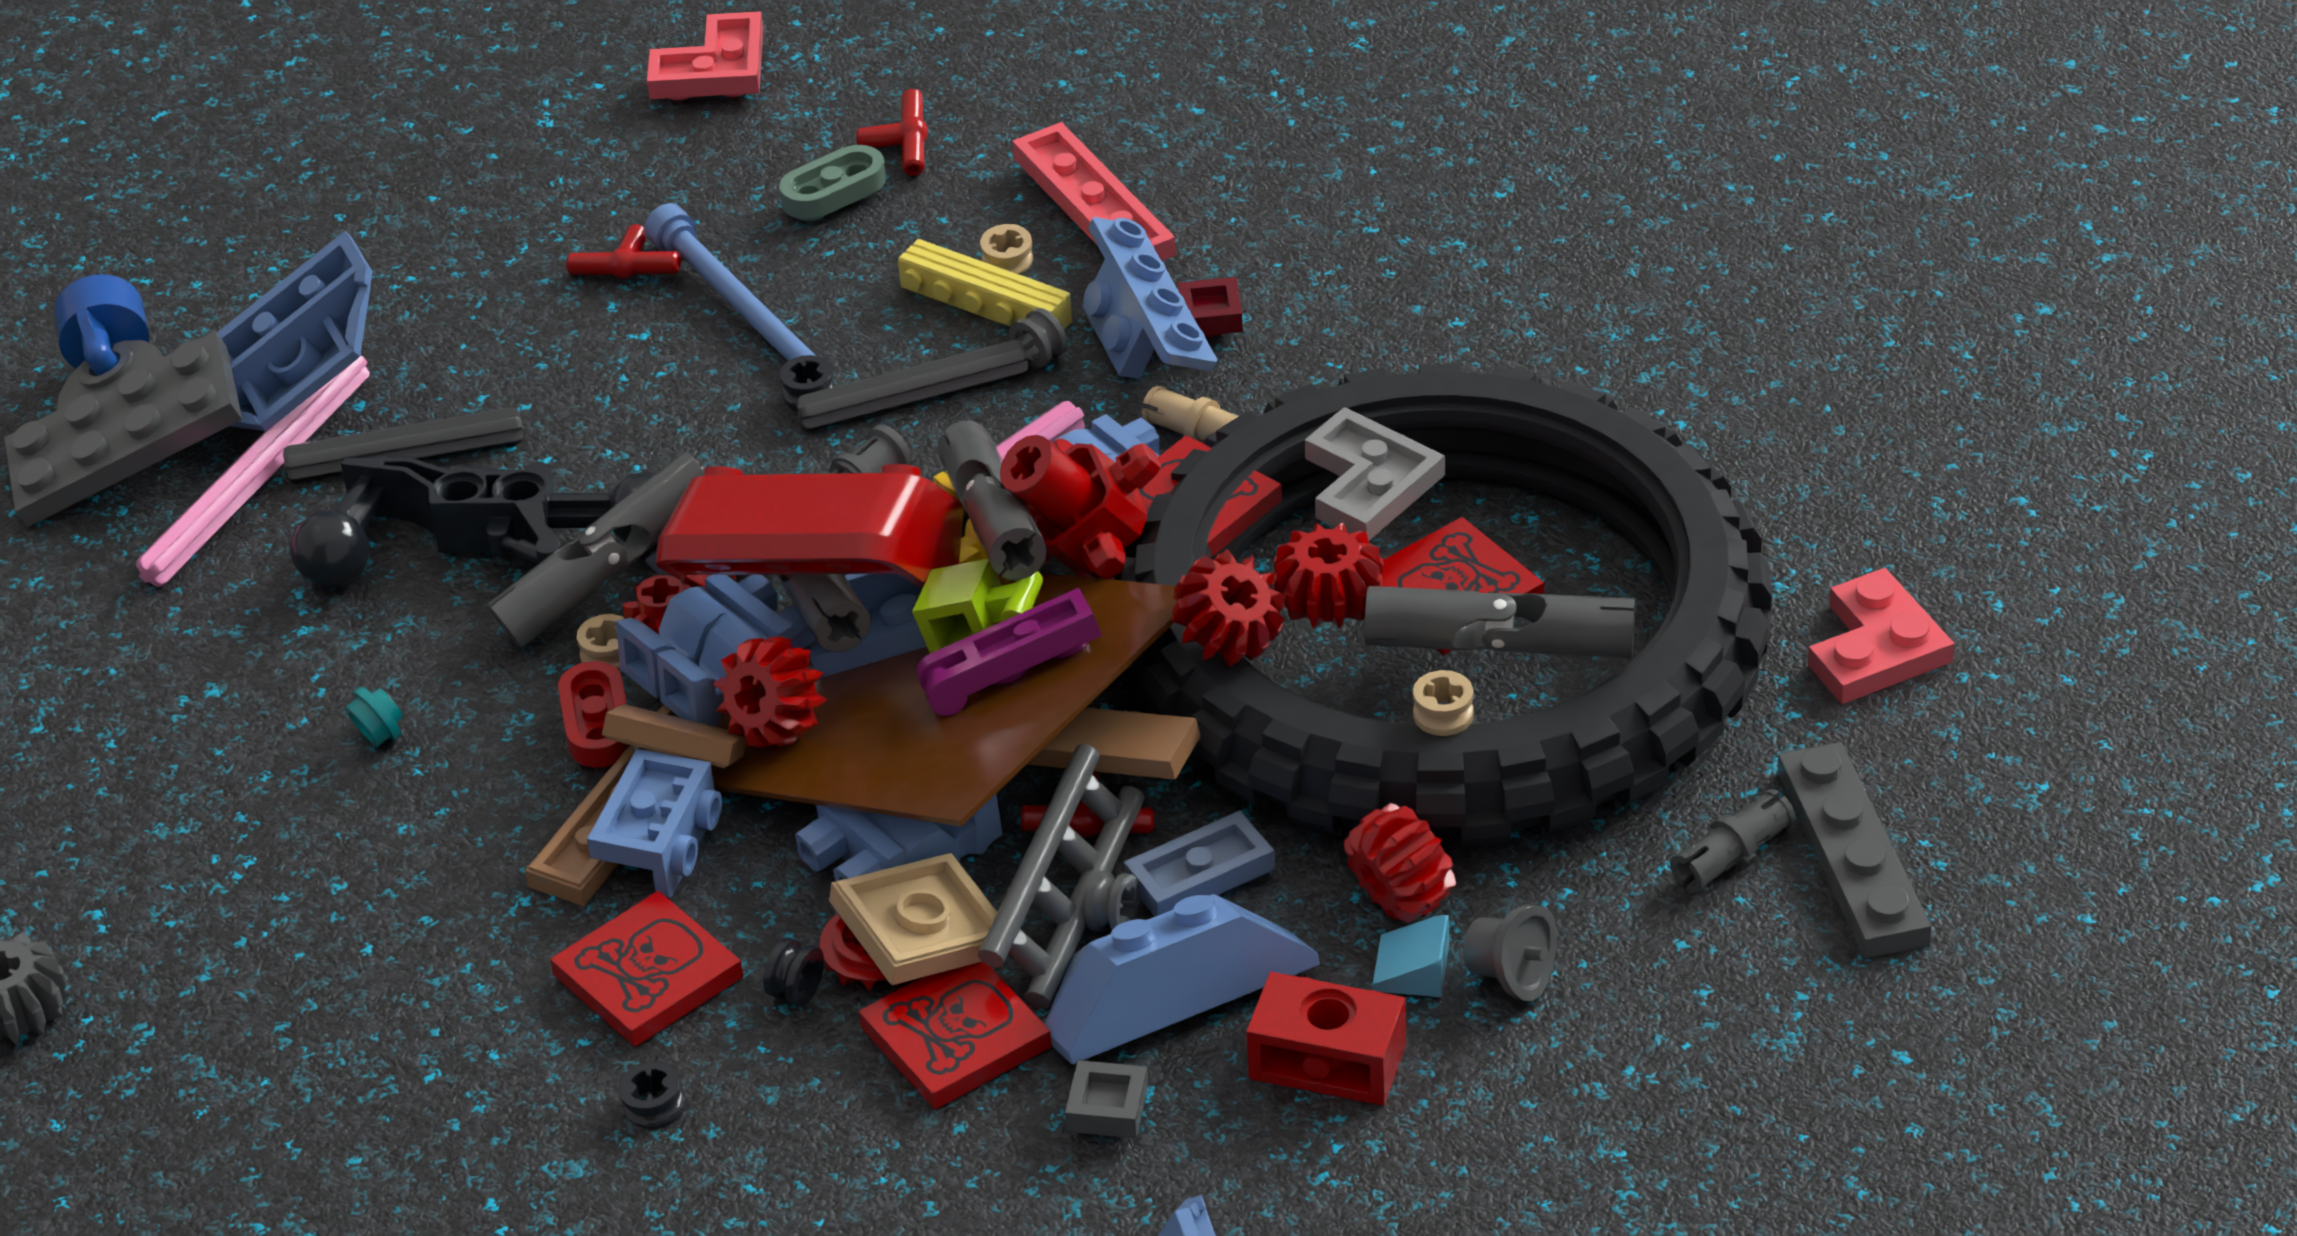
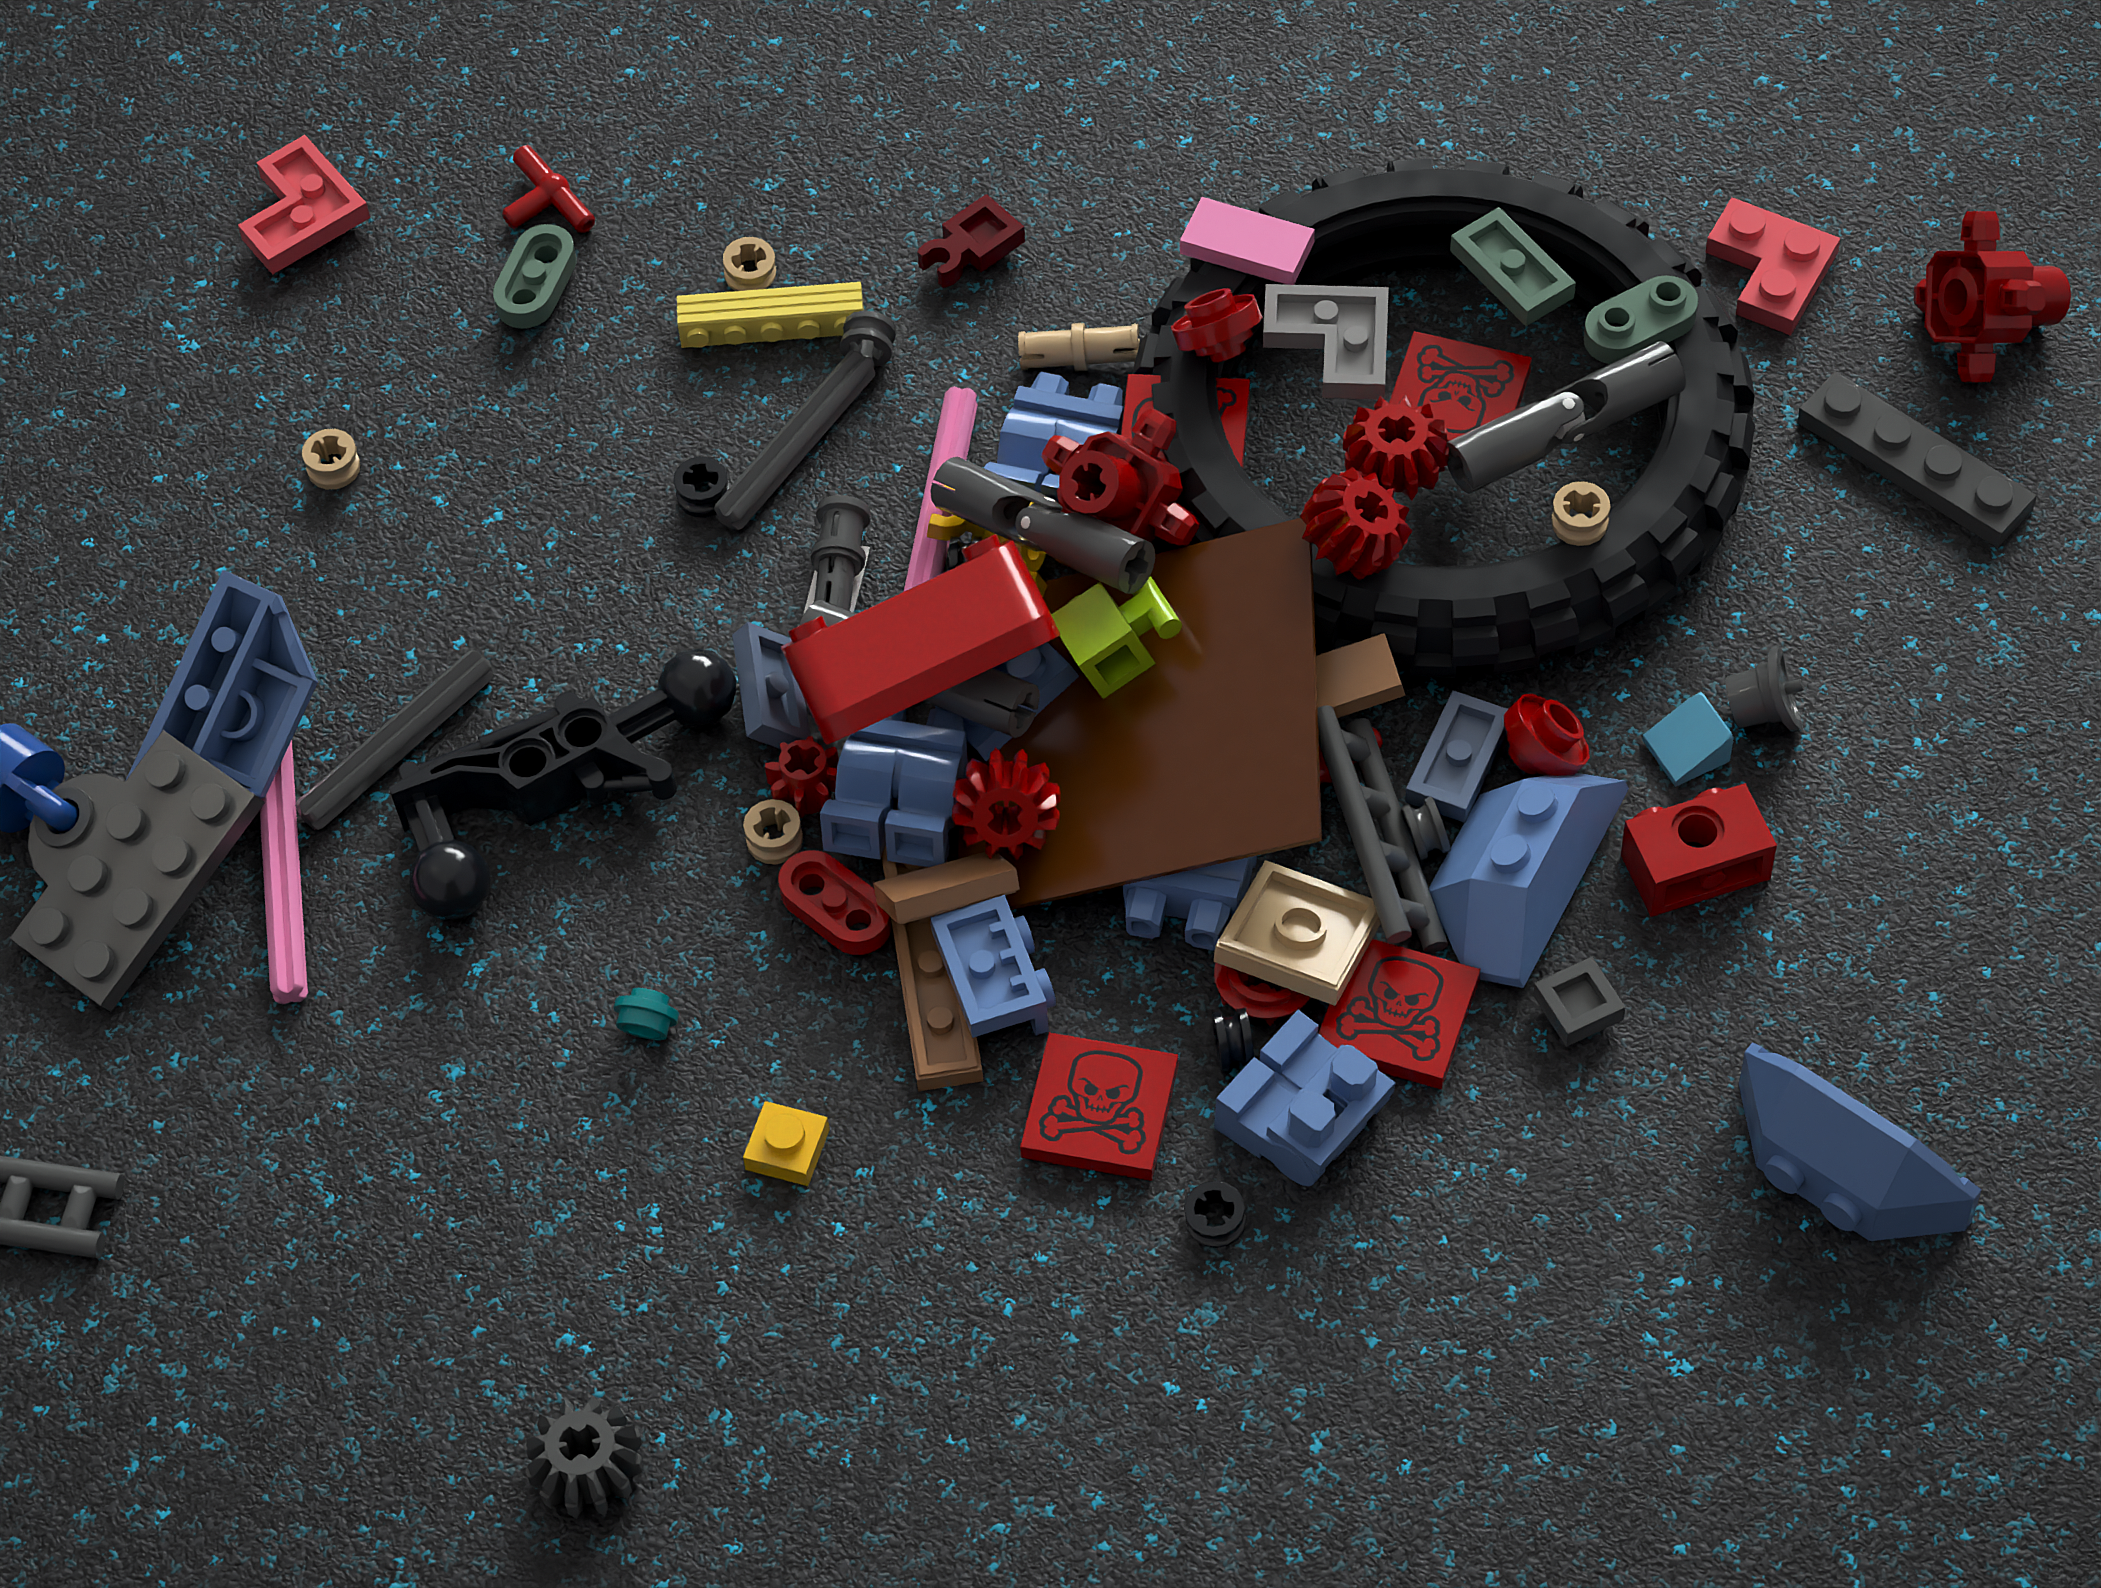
camera: 35 degrees left, 15 degrees up
(387, 864) = (786, 1143): none -> yellow plate
(558, 236) = (341, 471): none -> tan bush
(584, 564) = (717, 739): dark grey piece -> none
(626, 259) = (416, 451): red piece -> none
(674, 230) = (438, 400): medium blue piece -> none
(799, 1047) = (1301, 1100): none -> medium blue hips
(1006, 651) = (1192, 658): magenta plate -> none
(1084, 184) = (782, 175): coral plate -> none
(1138, 304) = (934, 267): medium blue bracket -> none
(1272, 417) = (1217, 324): none -> red plate
(1282, 883) = (1545, 737): none -> red plate
(1373, 377) = (1247, 241): none -> bright pink tile
(1399, 862) = (1626, 667): red gear -> none
(1575, 493) = (1512, 266): none -> sand green plate
(1660, 584) = (1649, 313): none -> sand green plate
(1732, 841) = (1830, 503): dark grey pin -> none
(2028, 738) = (1987, 296): none -> red piece

